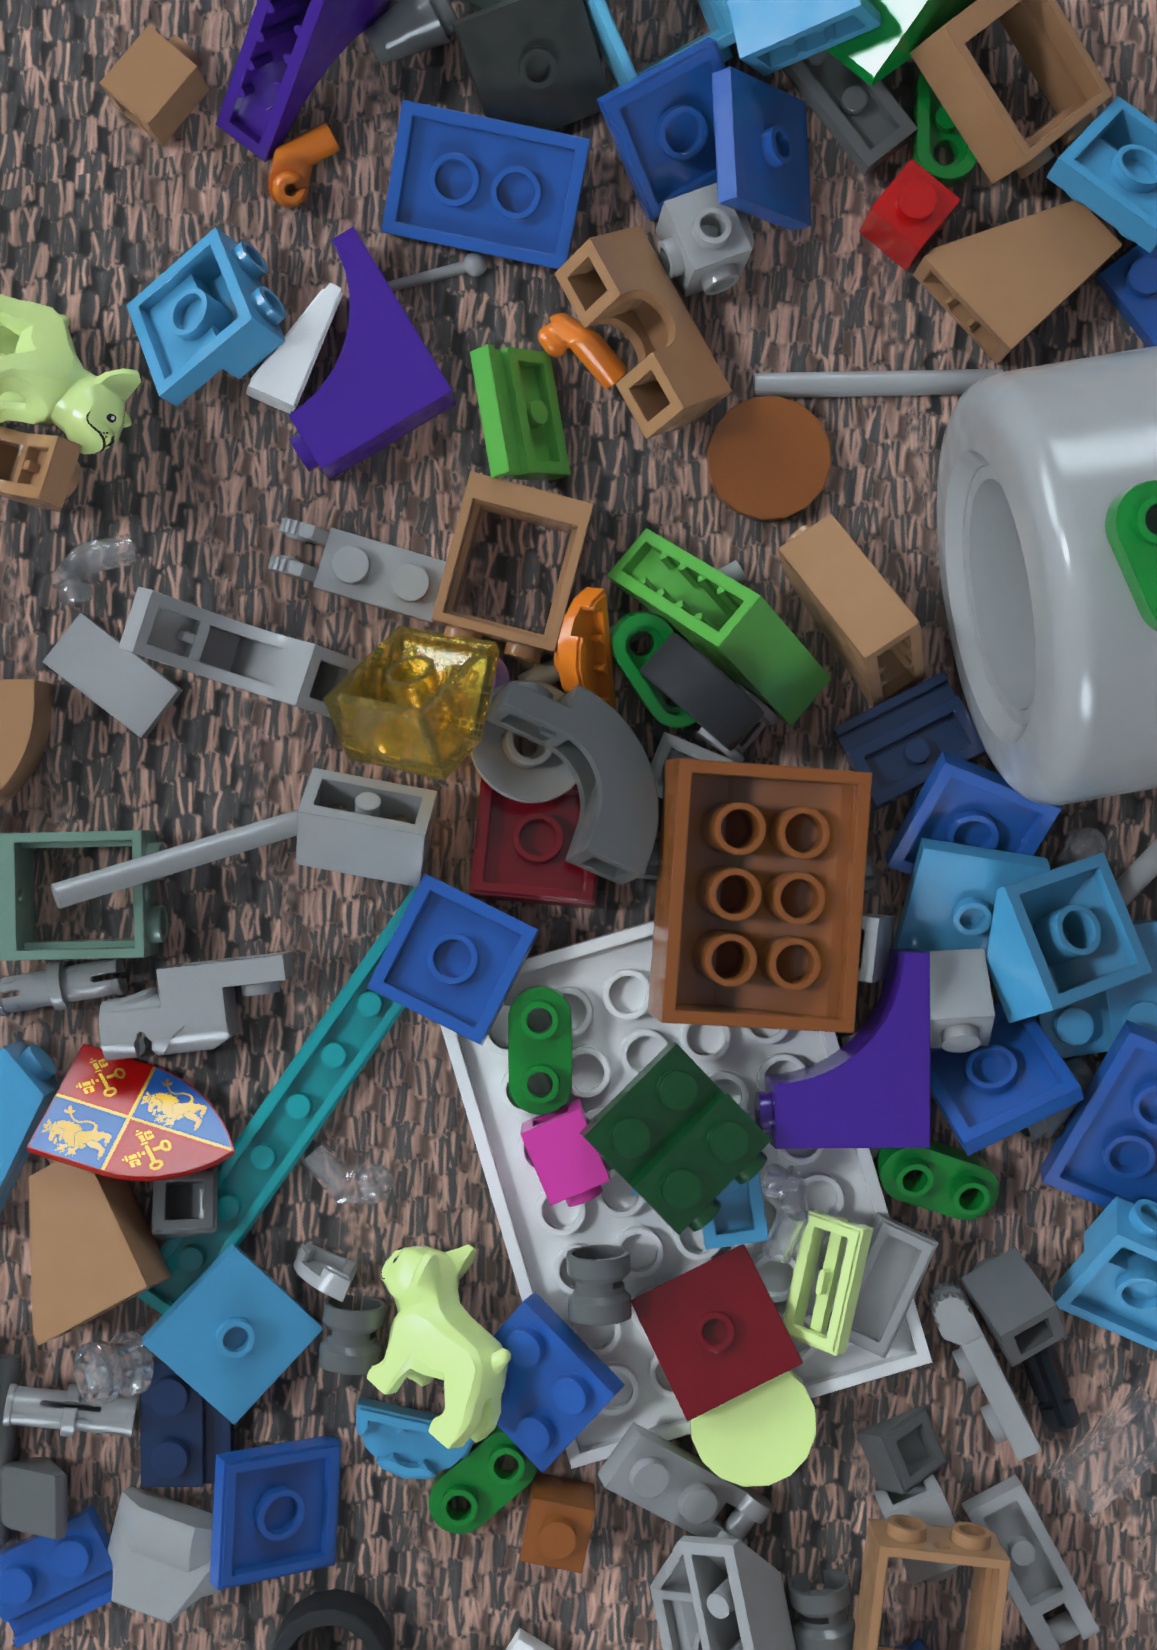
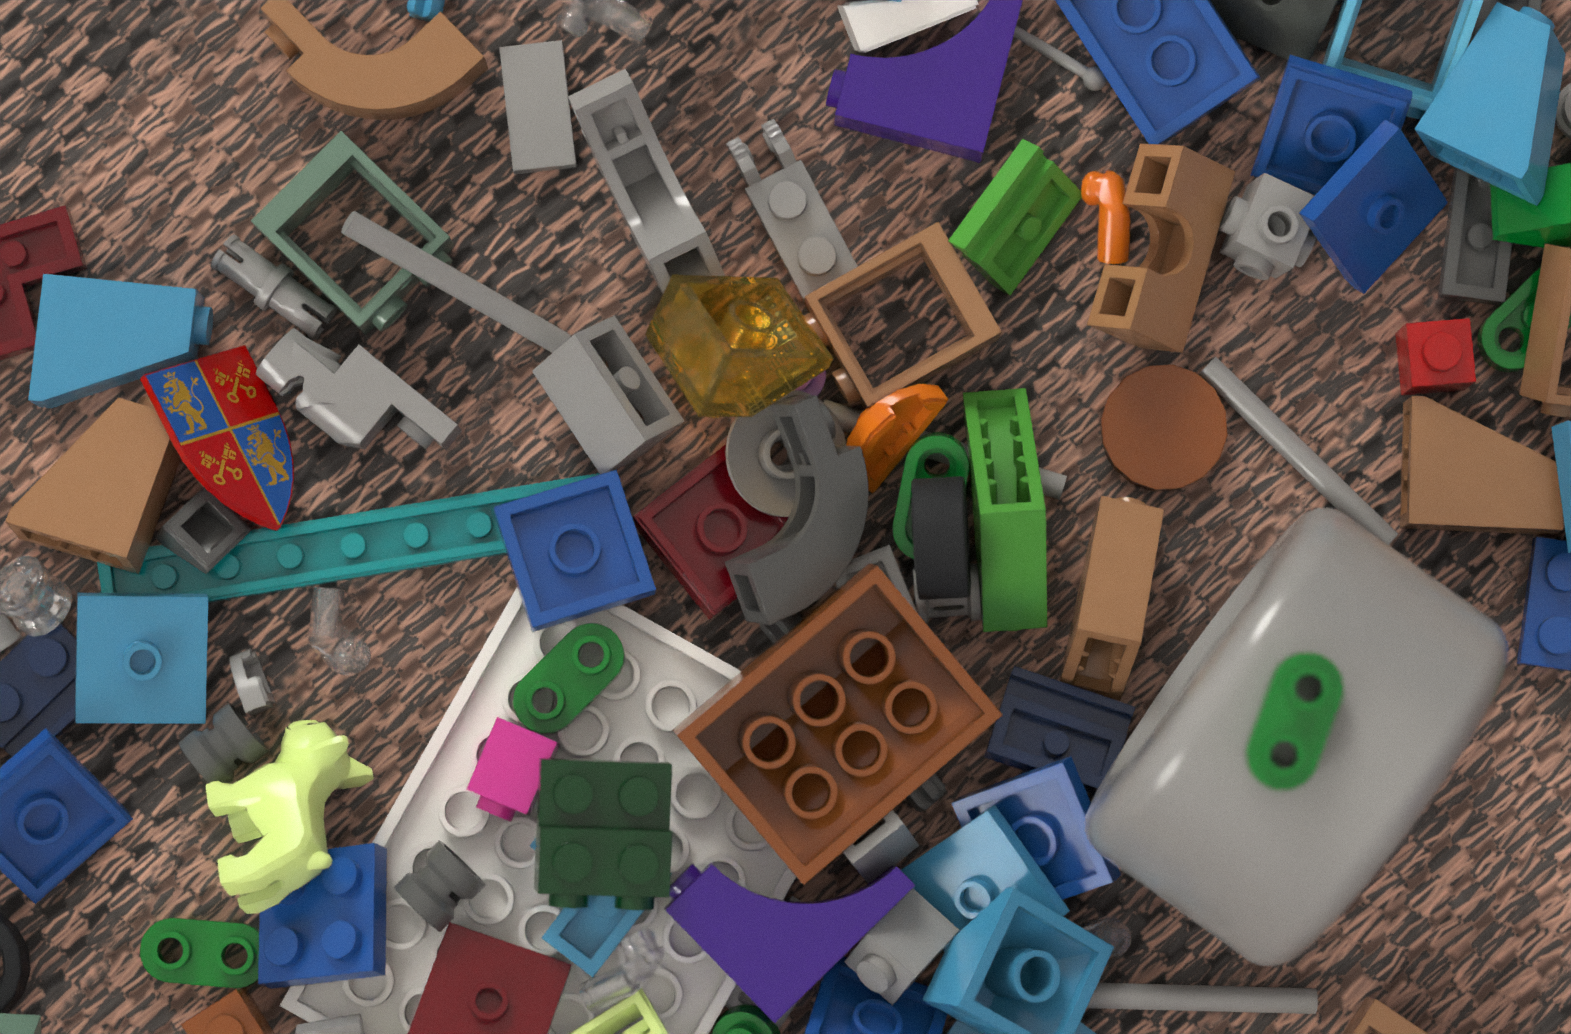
camera: 50 degrees right, 5 degrees down
(402, 1440) = (184, 870): dark azure plate -> none

